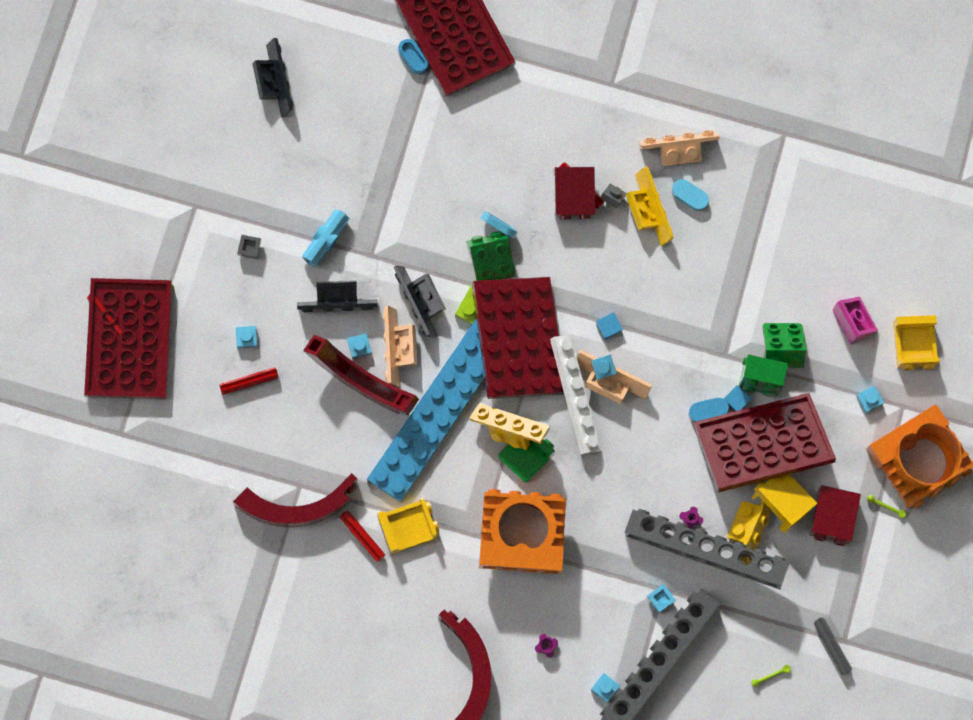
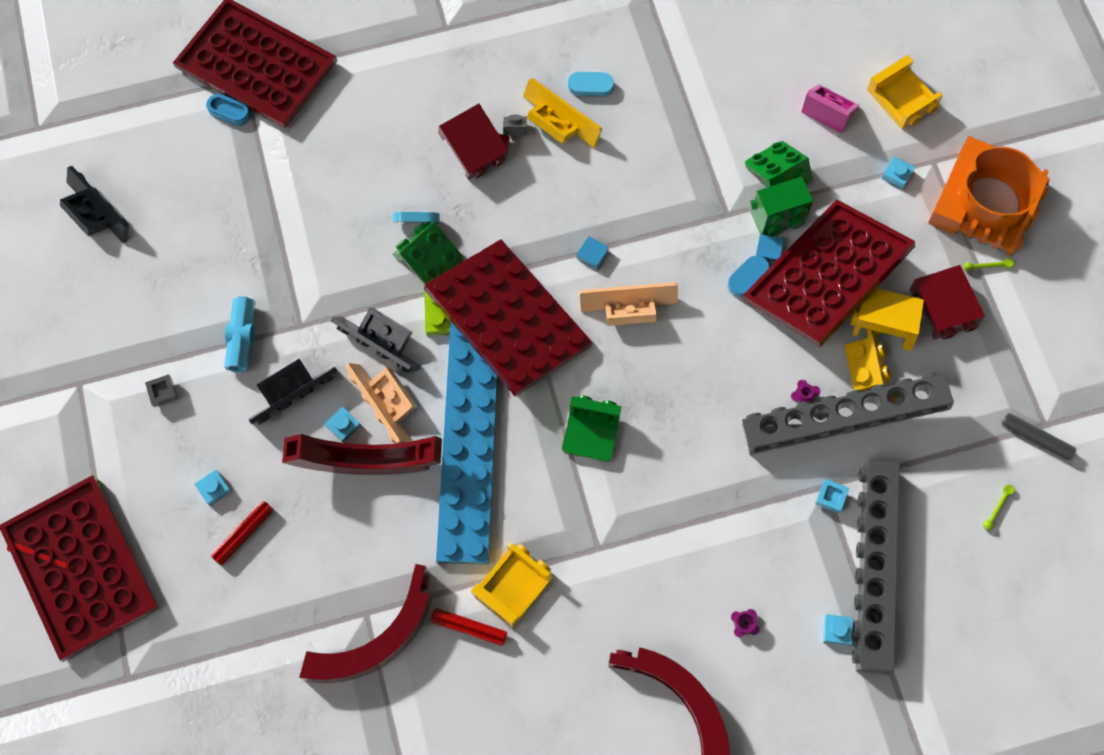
camera: 20 degrees left, 5 degrees down
(509, 427) = (557, 412): yellow bracket -> none
(521, 558) = (636, 554): orange hose -> none
(575, 394) = (604, 339): white plate -> none
(604, 366) = (616, 291): medium azure plate -> none
(680, 149) = (554, 47): light nougat bracket -> none

